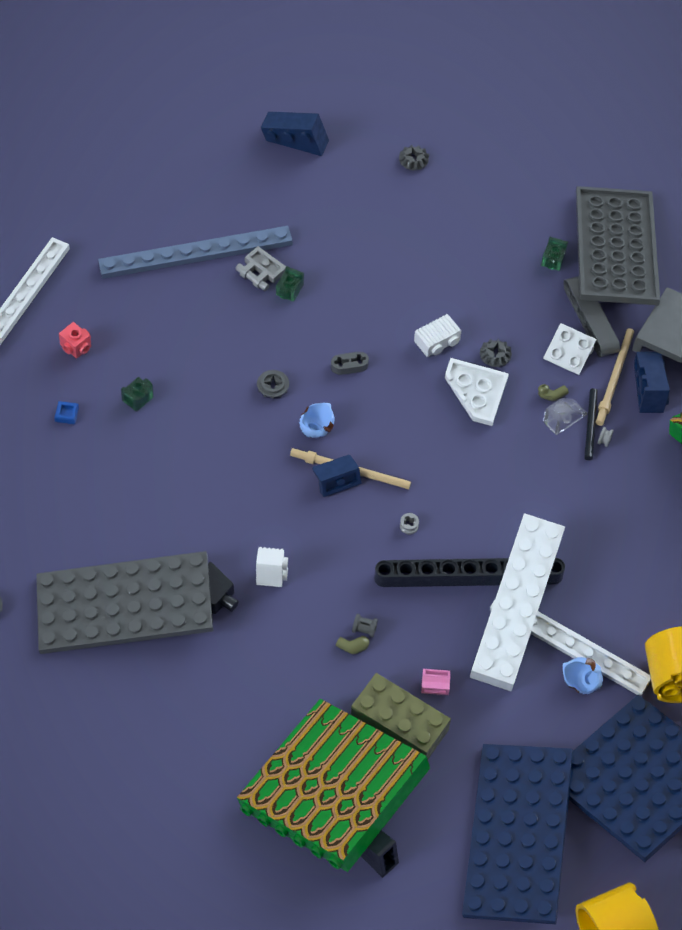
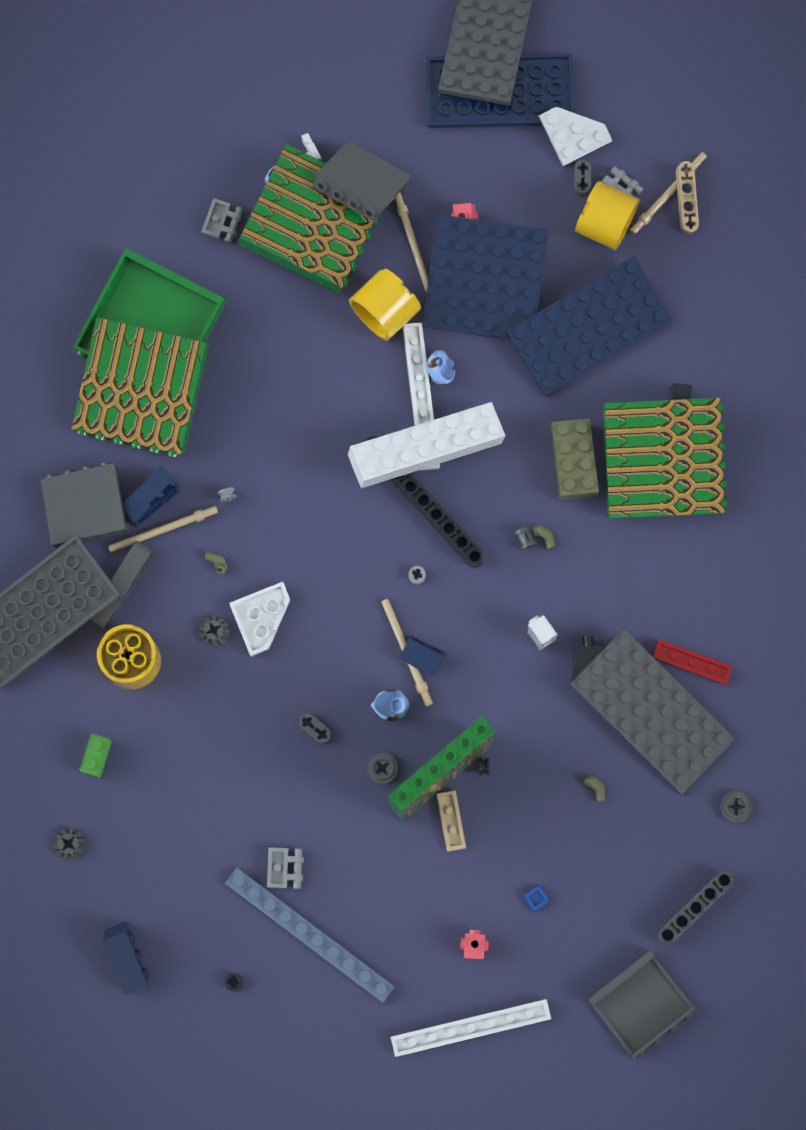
camera: 125 degrees left, 20 degrees up
(107, 519) = (597, 785): none -> olive arm
(133, 669) = (692, 662): none -> red plate
(137, 393) = (483, 863): brick -> none
(185, 400) = (451, 820): none -> tan tile
(204, 450) = (483, 766): none -> black bush
(210, 189) = (238, 978): none -> black bush
(225, 386) = (441, 769): none -> green panel
(290, 284) = (276, 837): clear green brick -> none
(435, 682) = (525, 460): bright pink piece -> none
(437, 335) = (236, 681): white brick -> none
(465, 210) = (95, 756): none -> bright green brick
(523, 273) = (143, 662): none -> yellow brick
(554, 253) = (79, 663): clear green brick -> none
(563, 414) = (230, 537): clear slope -> none
(570, 349) = (167, 577): white hinge -> none
(591, 424) = (221, 515): black bar -> none

